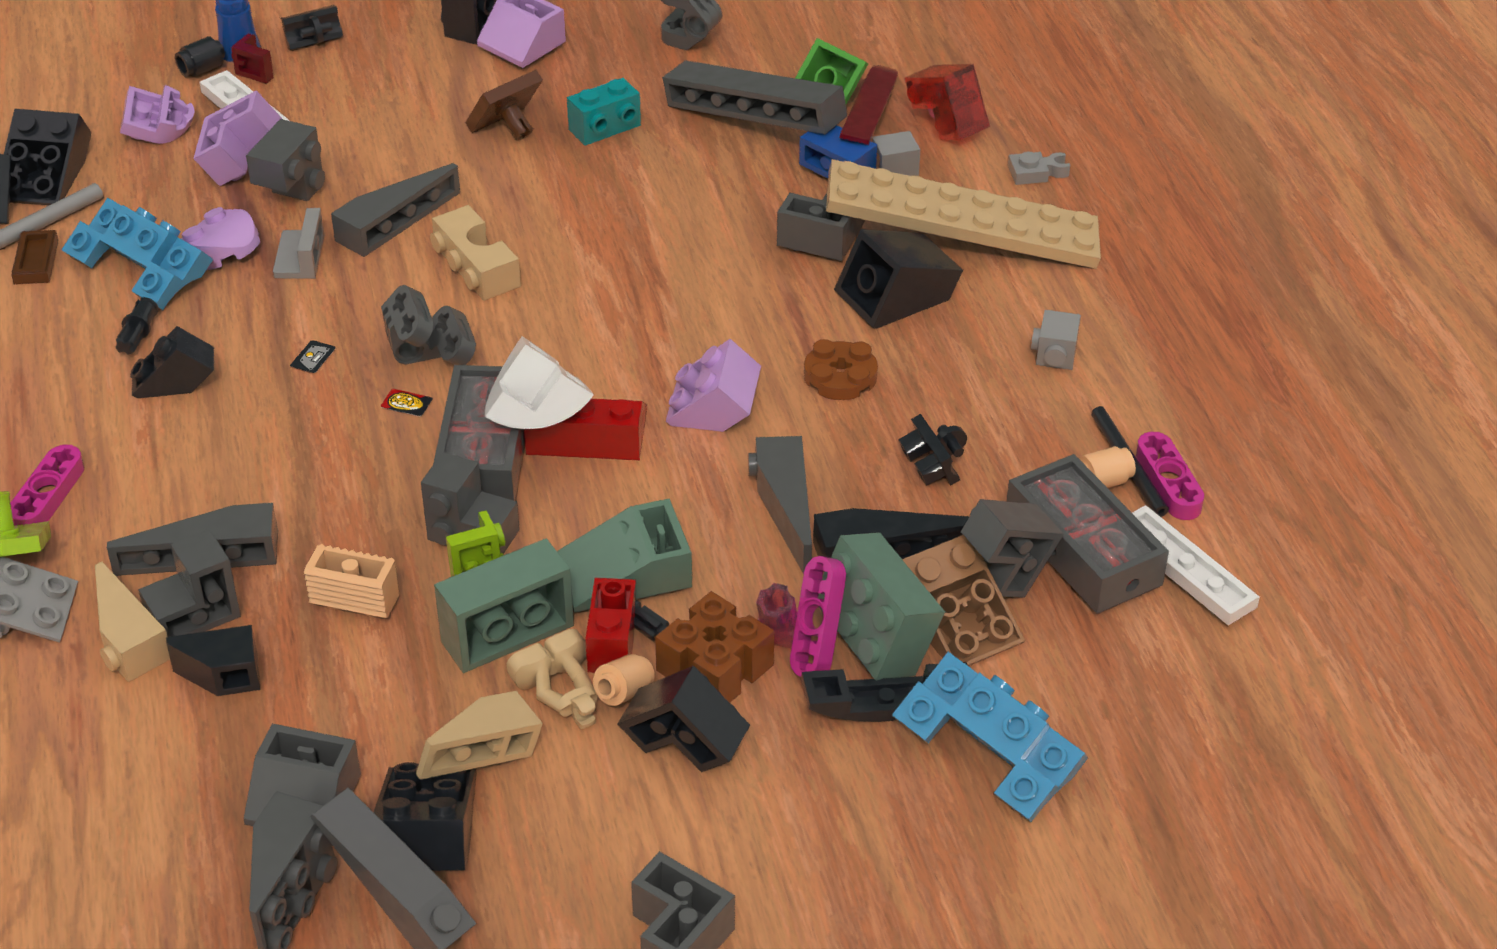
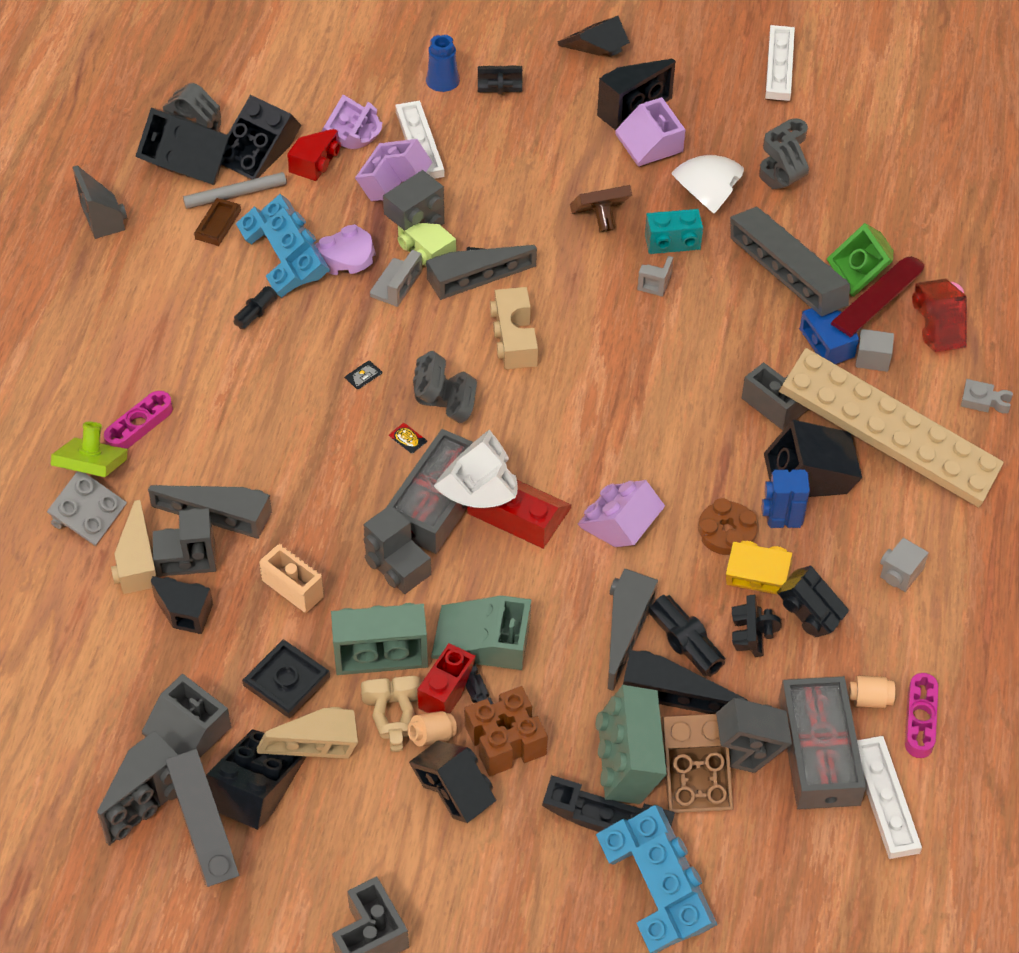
camera: 25 degrees right, 10 degrees up
(123, 155) = (313, 153): none -> red slope
(174, 366) = (262, 352): black slope -> none
(200, 57) = (407, 80): black brick -> none
(252, 60) = (442, 96): dark red bracket -> none
(315, 192) = (427, 239): none -> yellowish green slope
(403, 694) = (286, 678): none -> black plate
(475, 546) = (380, 591): lime bracket -> none
(608, 161) = (655, 279): none -> light grey panel
(615, 52) = (709, 178): none -> white brick
(779, 612) = (560, 726): clear pink piece -> none
(831, 606) = (594, 720): dark pink beam -> none
(863, 483) = (687, 635): none -> black piece
(895, 313) = (786, 498): none -> blue brick
(905, 390) = (758, 567): none -> yellow brick
(988, 400) = (812, 602): none -> black brick
(1140, 478) = (899, 678): black piece -> none

